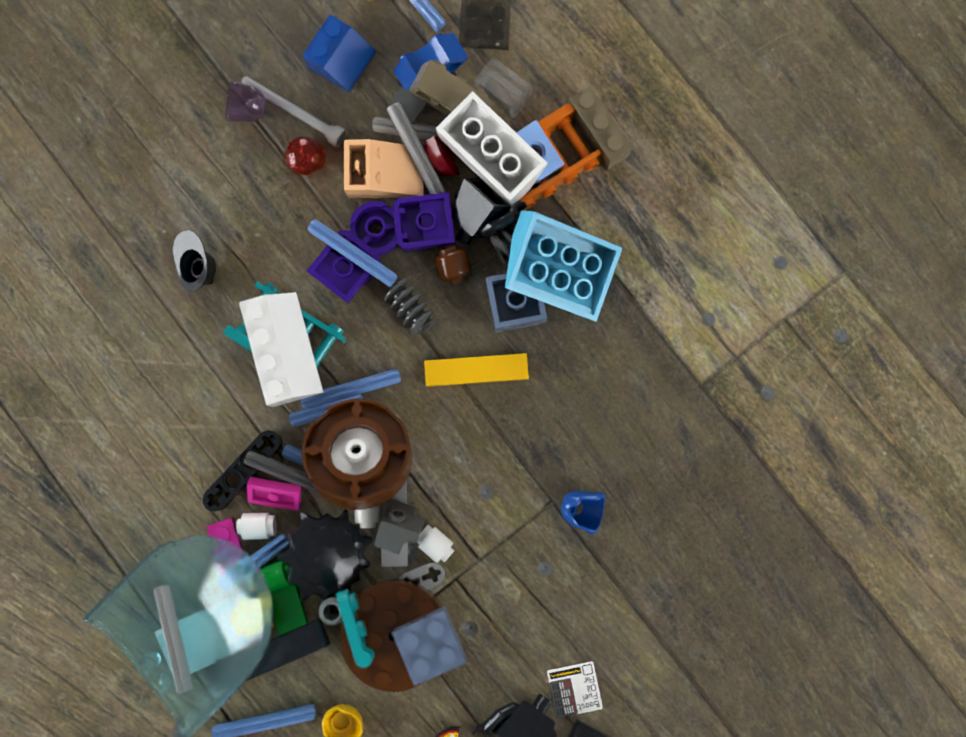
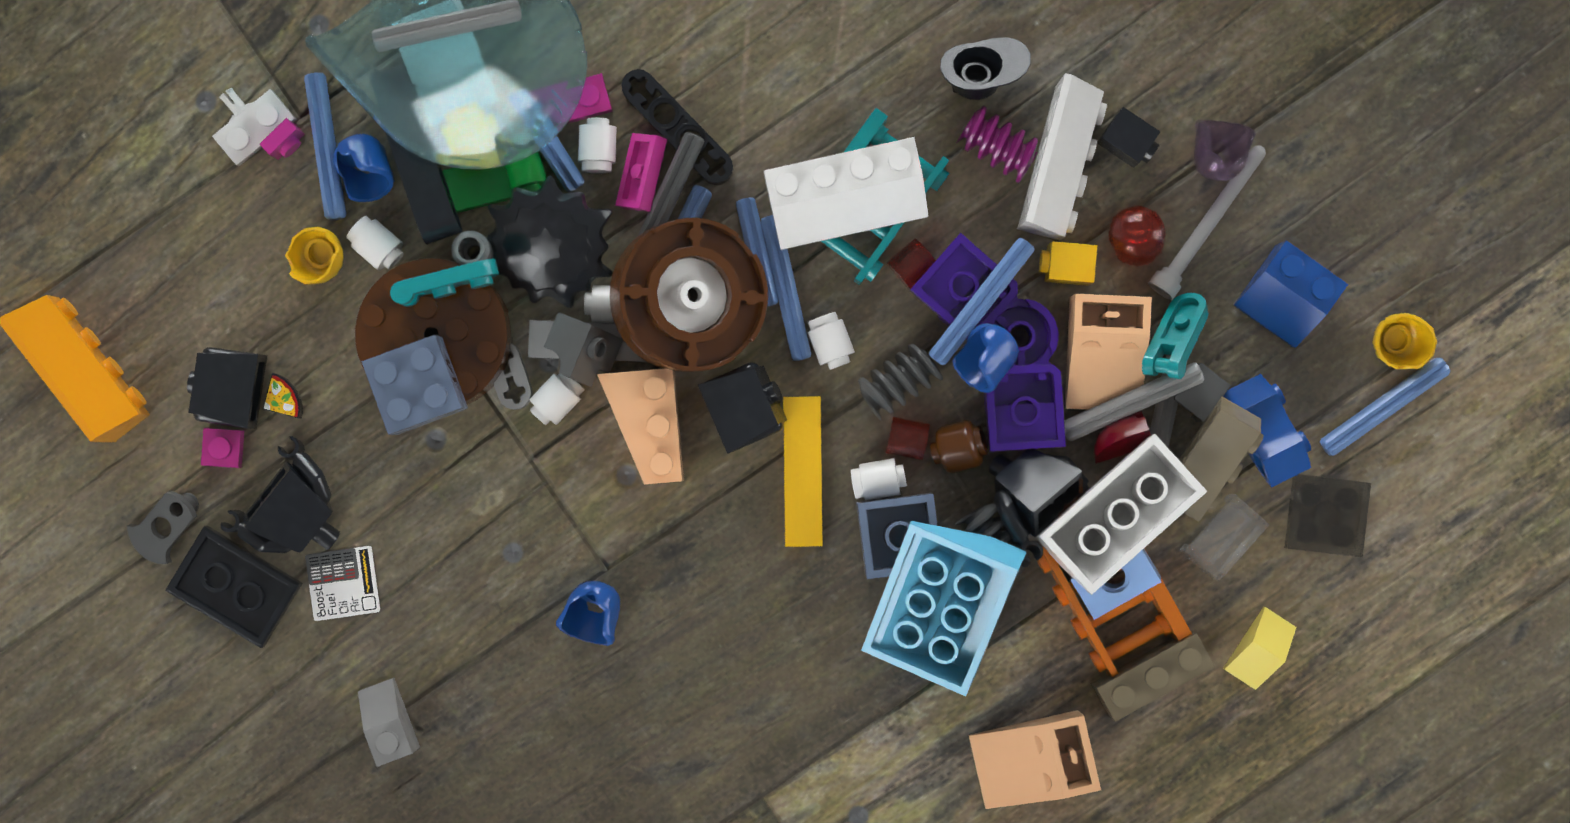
camera: 90 degrees right, 5 degrees up
(238, 163) = (1130, 138): none -> black brick
(245, 249) = (999, 143): none -> magenta piece
(253, 207) = (1061, 158): none -> white slope
(267, 693) = (367, 155): none -> blue hair
(325, 198) = (1069, 263): none -> yellow brick
(330, 304) = (911, 263): none -> clear red brick
(332, 681) = (375, 243): none -> white brick
(370, 123) = (1176, 336): none -> teal plate
(385, 355) = (830, 340): none -> white brick
(390, 247) = (986, 357): none -> blue hair
(433, 411) = (744, 405): none -> black torso
(446, 477) = (649, 421): none -> light nougat wedge
(449, 300) = (907, 438): none -> clear red brick
(478, 317) = (878, 479): none -> white brick
(576, 59) = (1261, 649): none -> light yellow slope
(662, 200) = (1035, 761): none -> light nougat slope
(671, 651) = (386, 722): none -> light grey slope

